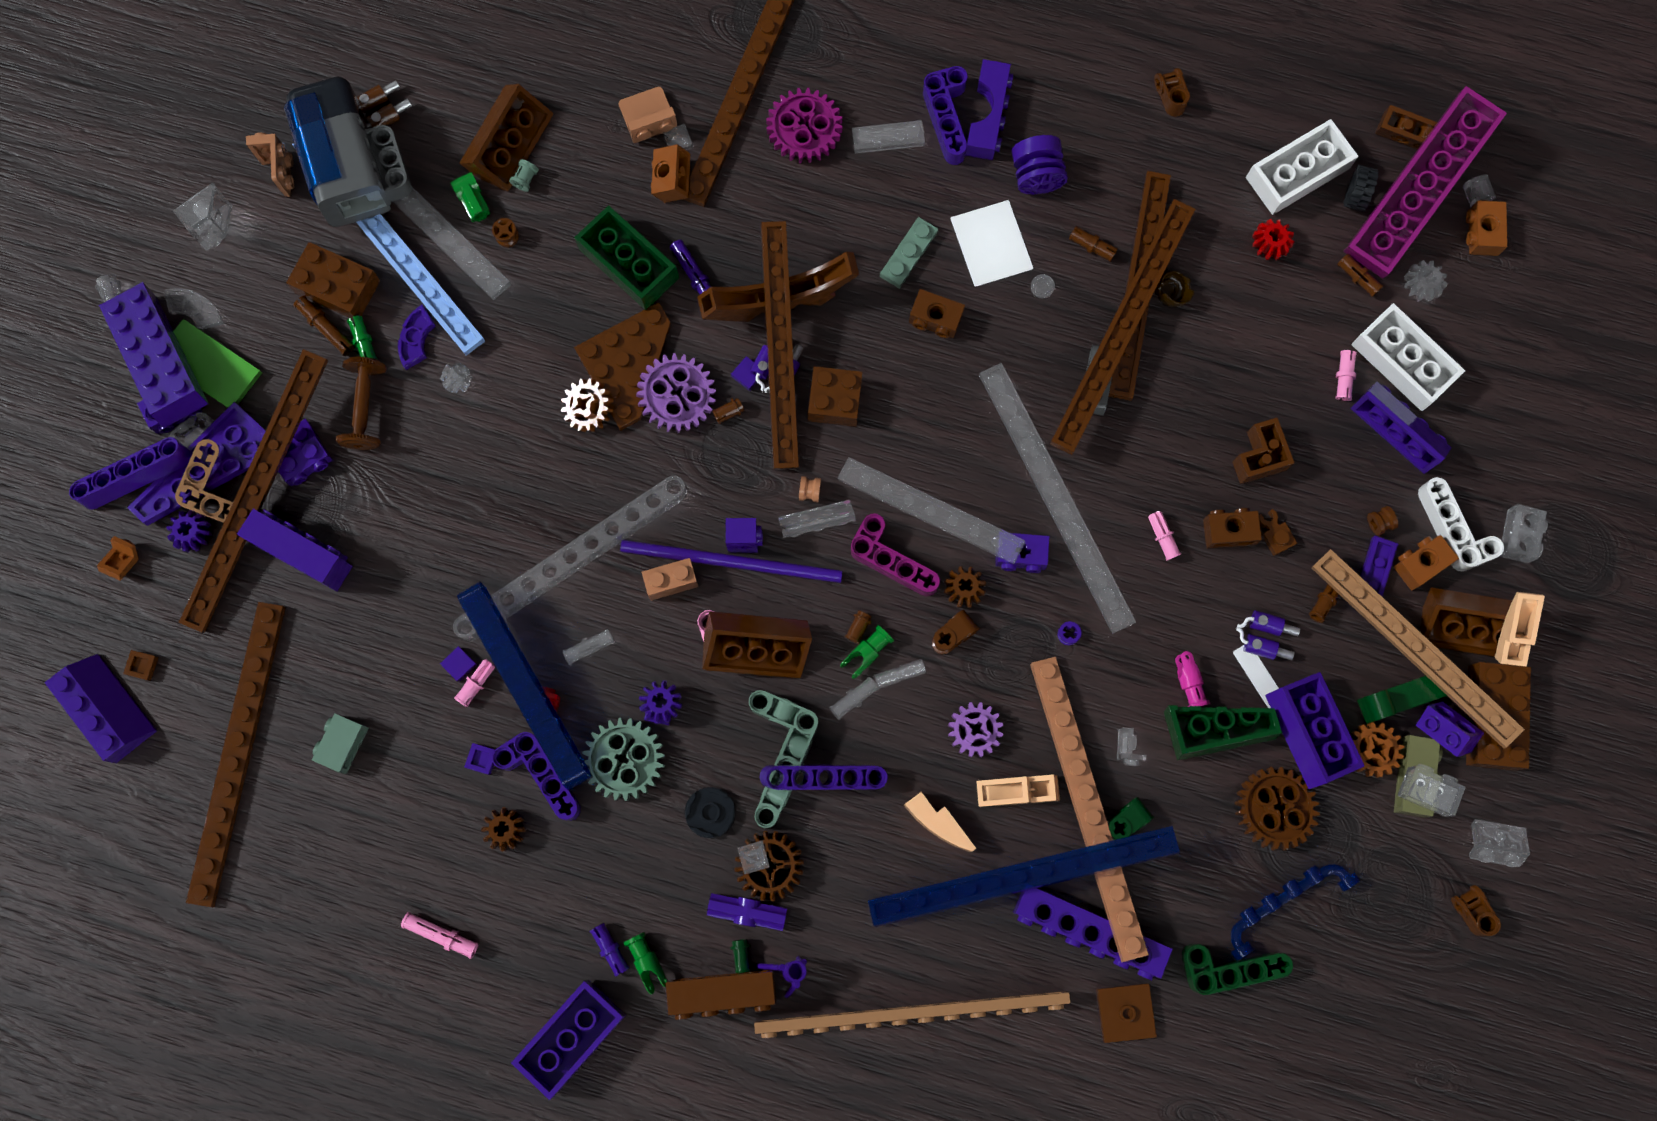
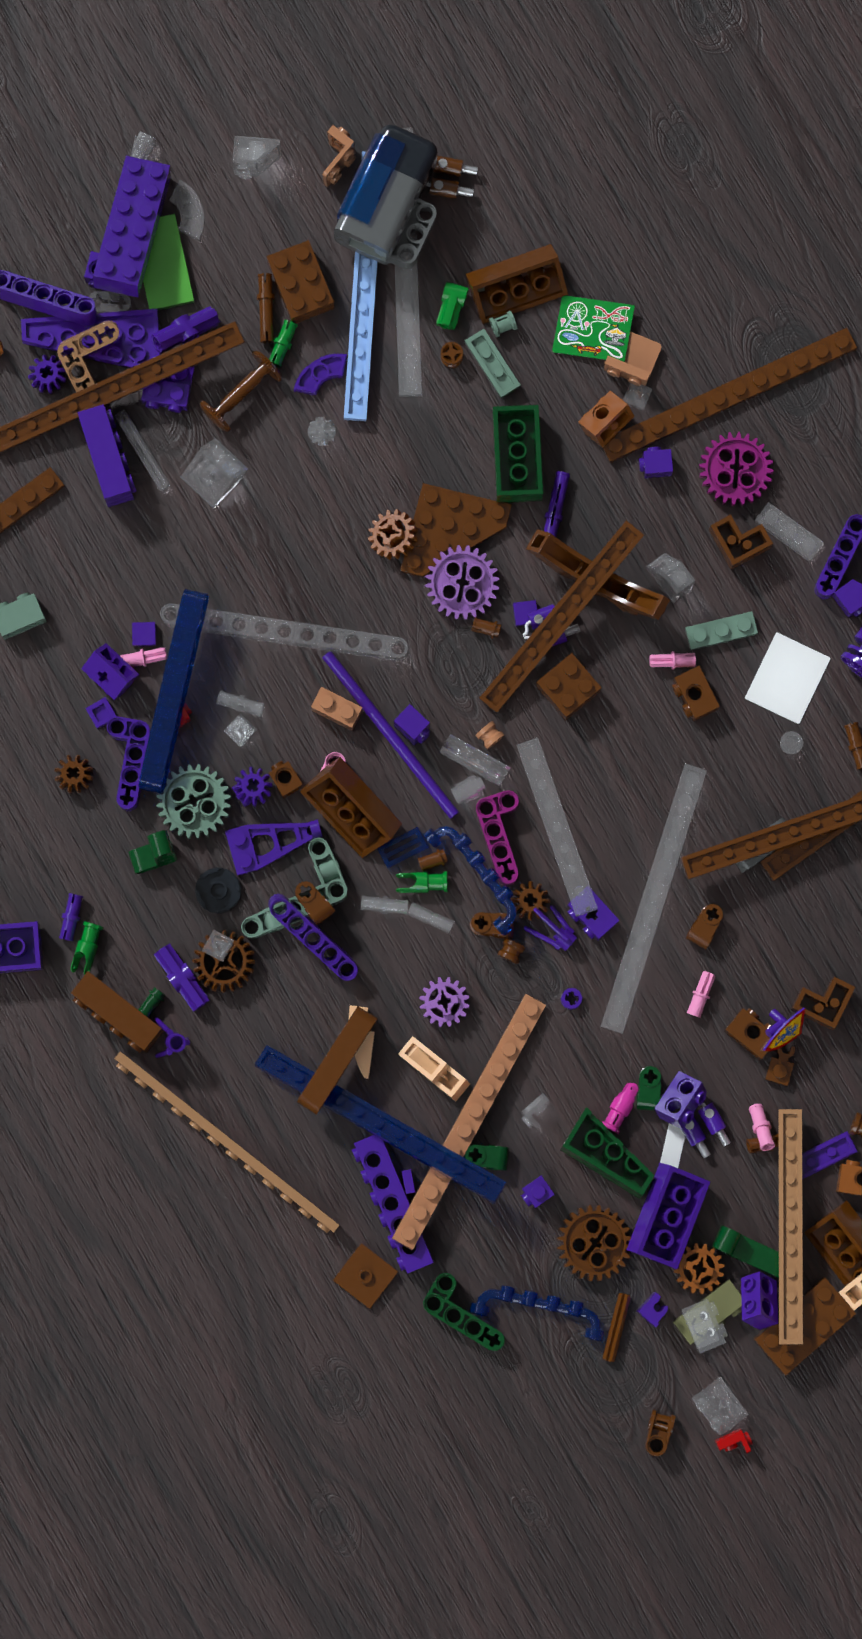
camera: 45 degrees right, 5 degrees up
(268, 396) = (185, 329): none -> dark purple piece
(323, 521) = (142, 450): none -> clear axle
(398, 486) = (214, 472): none -> clear slope
(456, 718) = (110, 671): none -> dark purple brick
(543, 211) = (492, 363): none -> sand green plate
(596, 120) = (593, 328): none -> green sticker
(608, 668) = (240, 730): none -> clear tile
(631, 833) = (153, 855): none -> dark green beam
(690, 678) = (289, 788): none -> reddish brown brick
(698, 760) = (243, 850): none -> dark purple plate
(740, 173) = (656, 462): none -> dark purple brick
(803, 748) = (316, 905): none -> reddish brown piece
(817, 660) = (424, 846): none -> clear blue tile
(833, 239) = (671, 576): none -> clear slope
(833, 546) = (468, 790): none -> clear brick
(861, 177) = (739, 547): none -> reddish brown brick
(895, 305) = (673, 660): none -> bright pink axle
(917, 596) = (488, 876): none -> clear blue bar
(939, 859) = (337, 1060): none -> reddish brown beam
(988, 639) = (511, 951): none -> reddish brown wheel
(1016, 590) = (564, 936): none -> dark purple plant
(1086, 901) = (408, 1181): none -> dark purple tile
(1116, 483) = (704, 930): none -> reddish brown piece
(1194, 811) = (536, 1192): none -> dark purple brick
(1201, 646) = (648, 1093): none -> dark green piece
(1228, 632) = (676, 1098): none -> dark purple brick
(1249, 500) = (783, 1030): none -> shield
(1312, 592) = (761, 1127): none -> bright pink pin
(1359, 859) = (616, 1327): none -> reddish brown axle
(1372, 819) = (649, 1311): none -> dark purple hinge
(1535, 863) = (730, 1441): none -> red bracket

